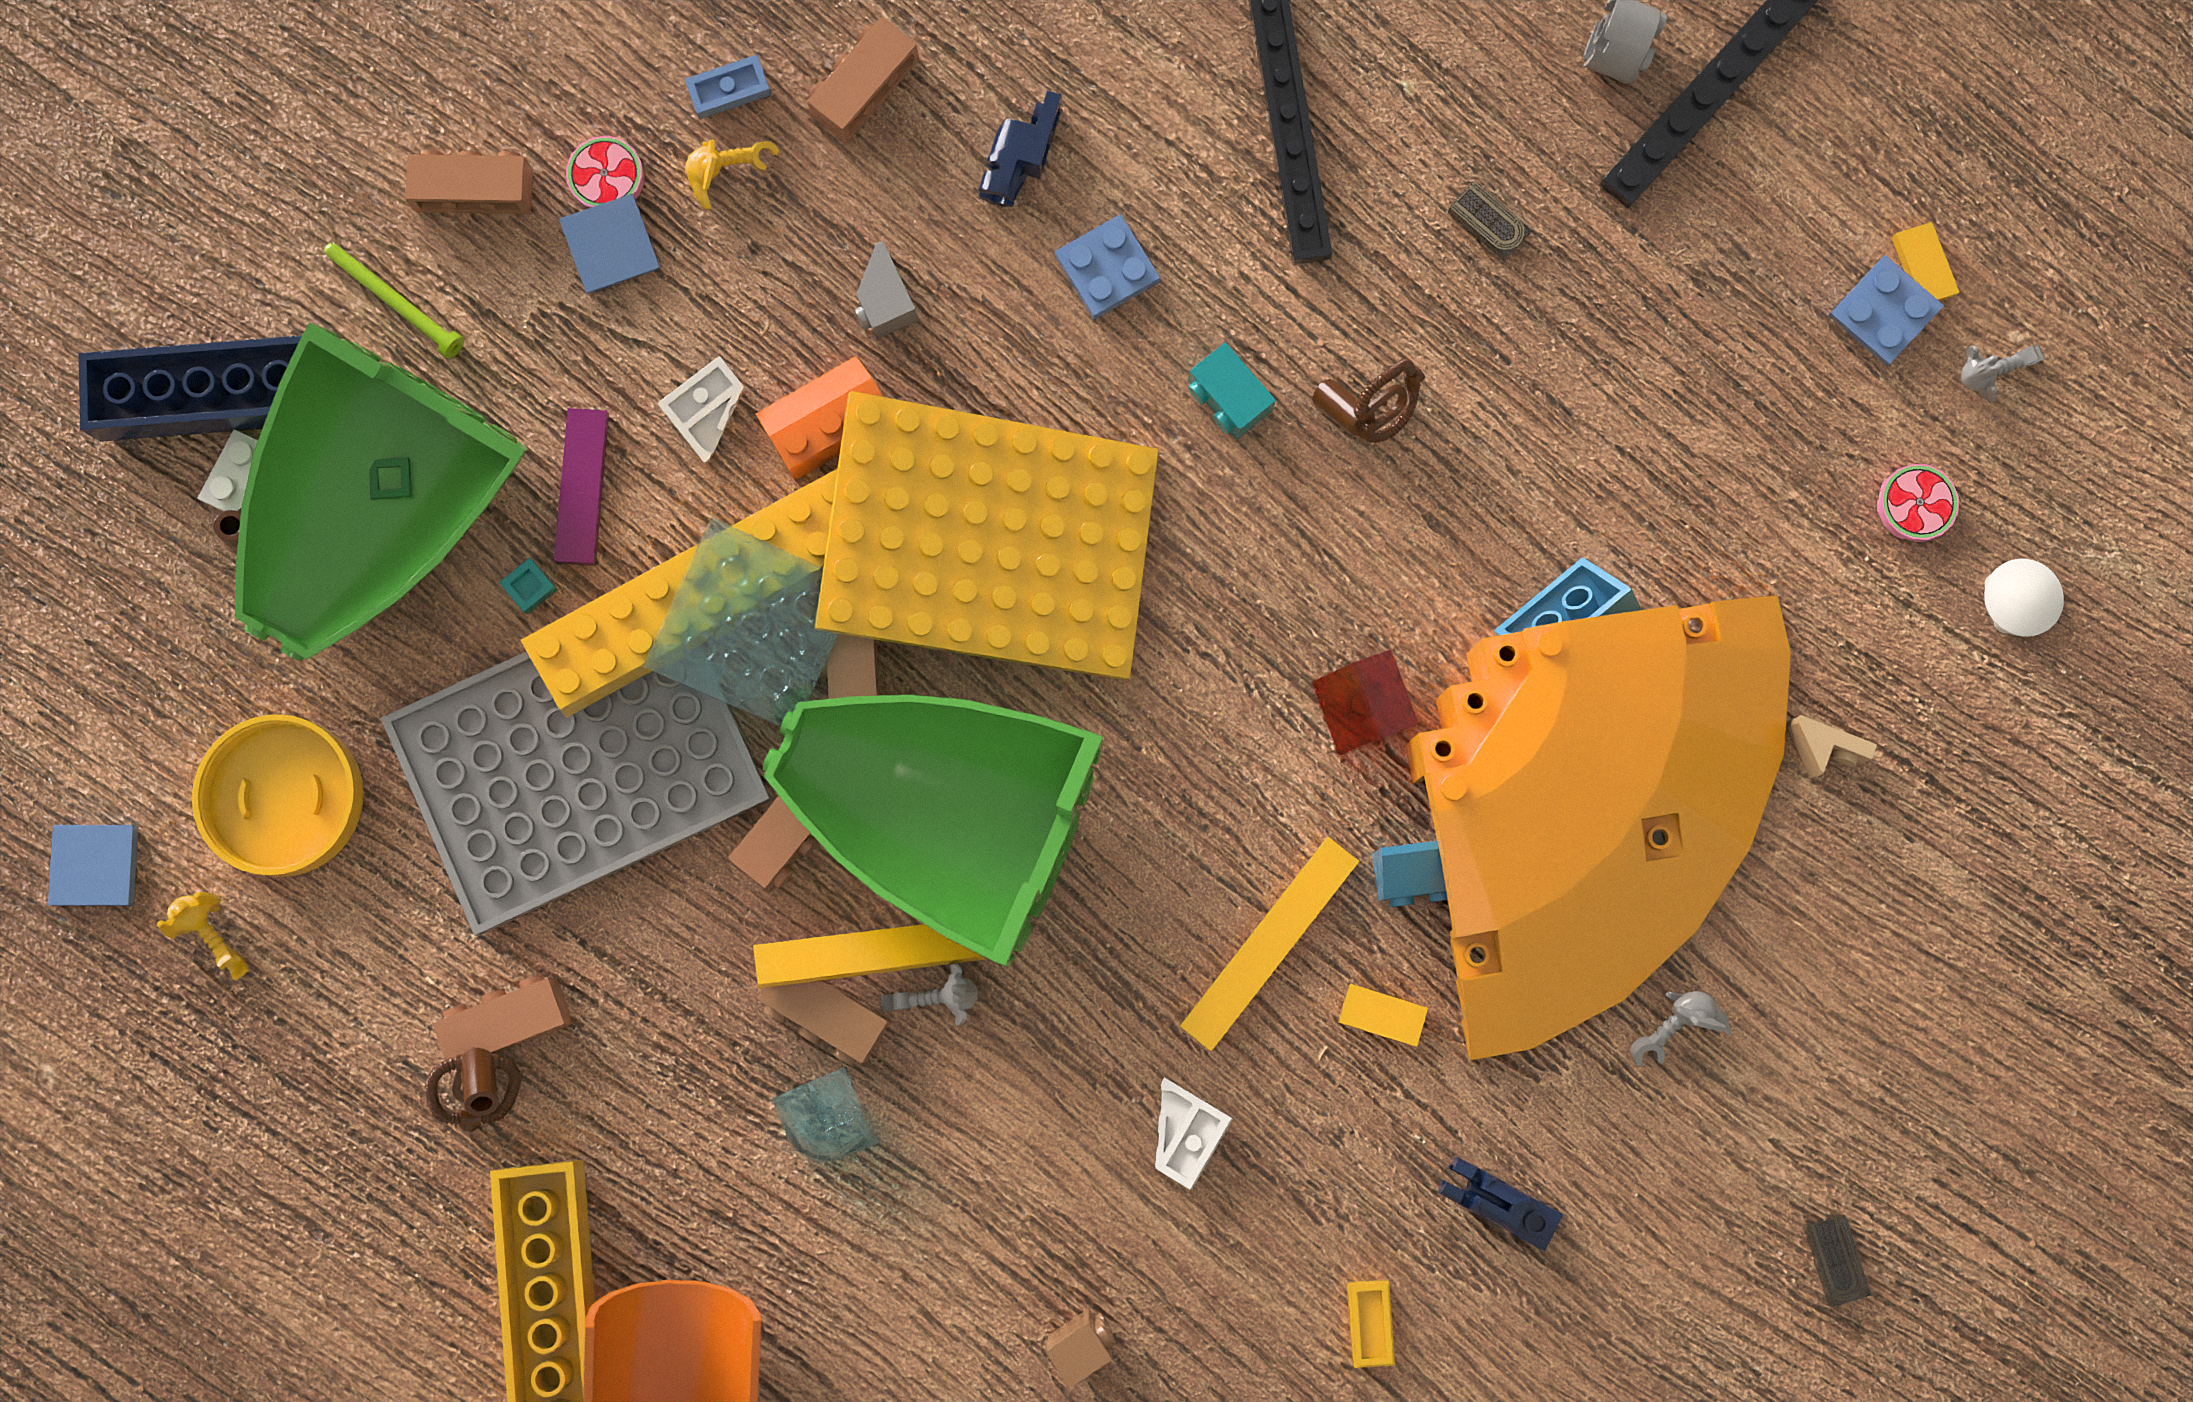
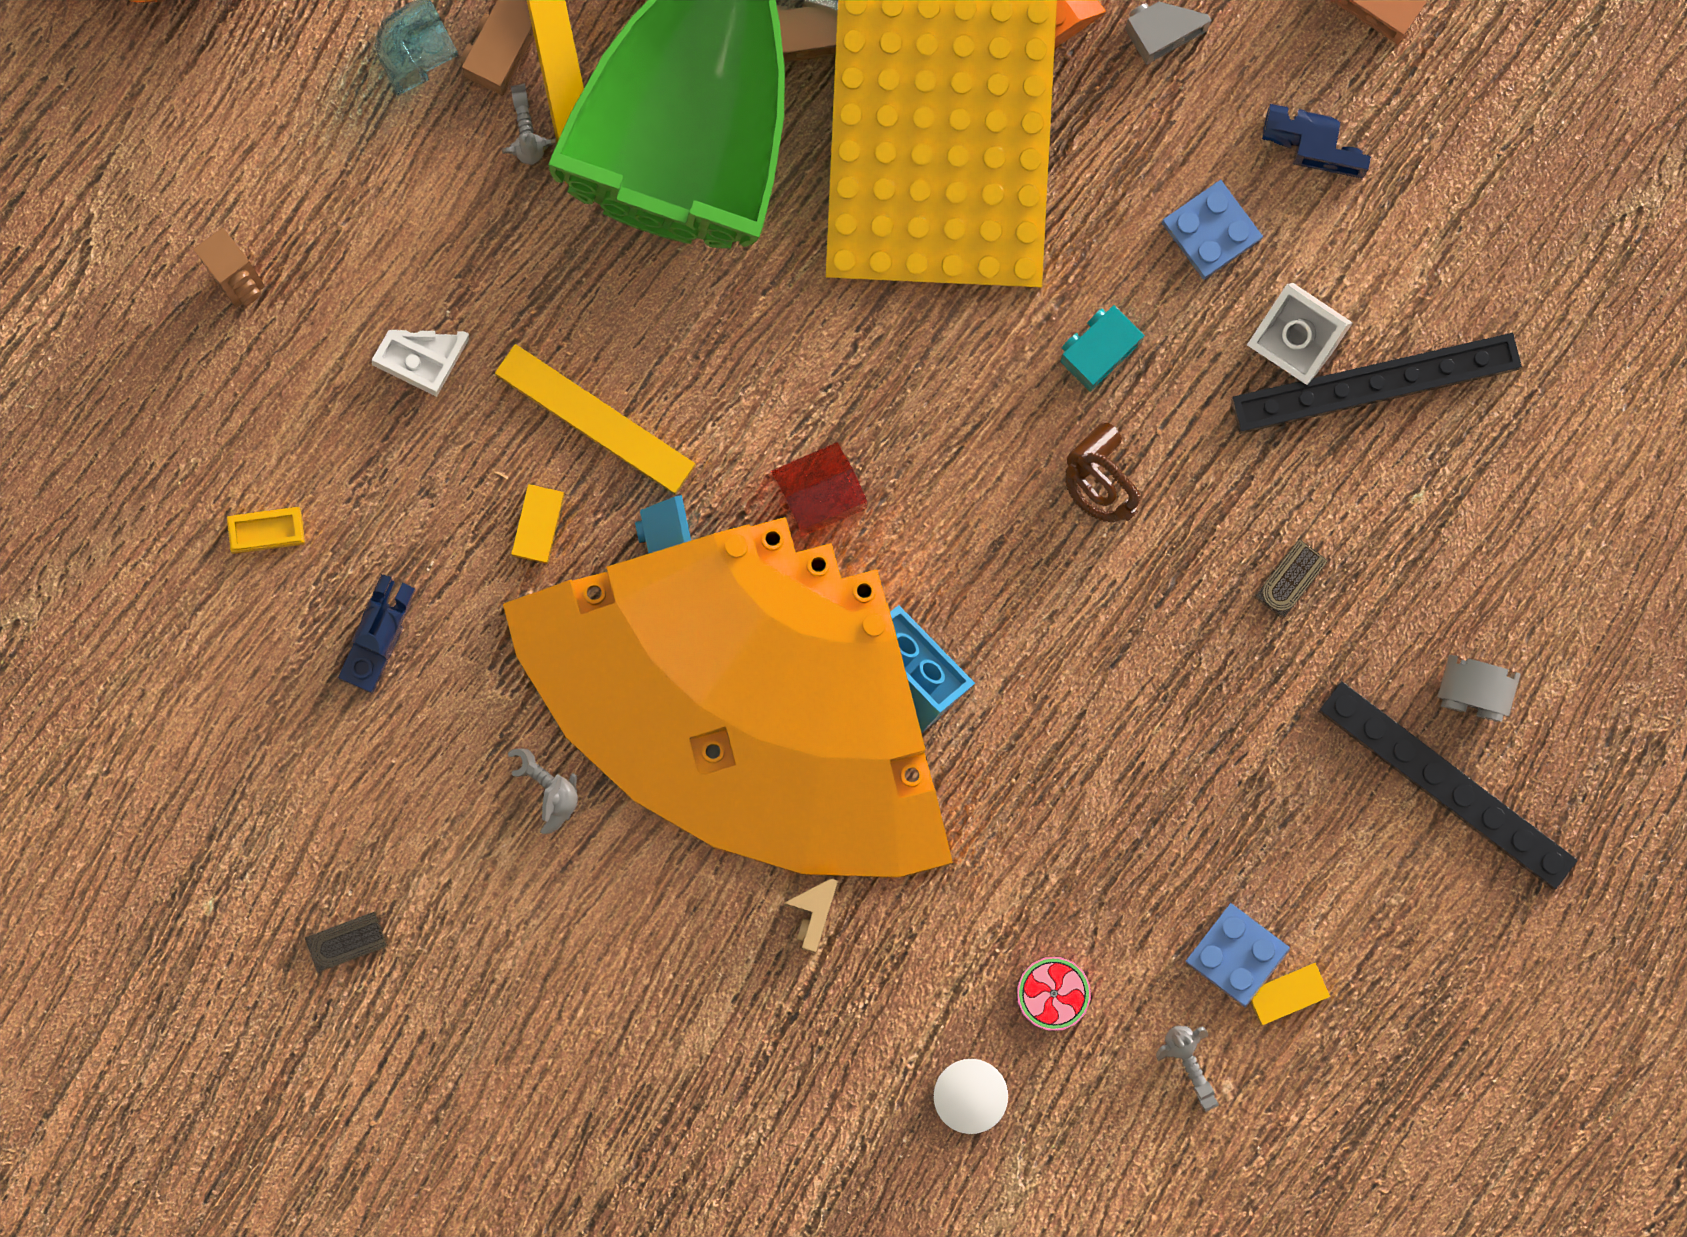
camera: 80 degrees right, 0 degrees up
(1232, 183) = (1299, 333): none -> white slope

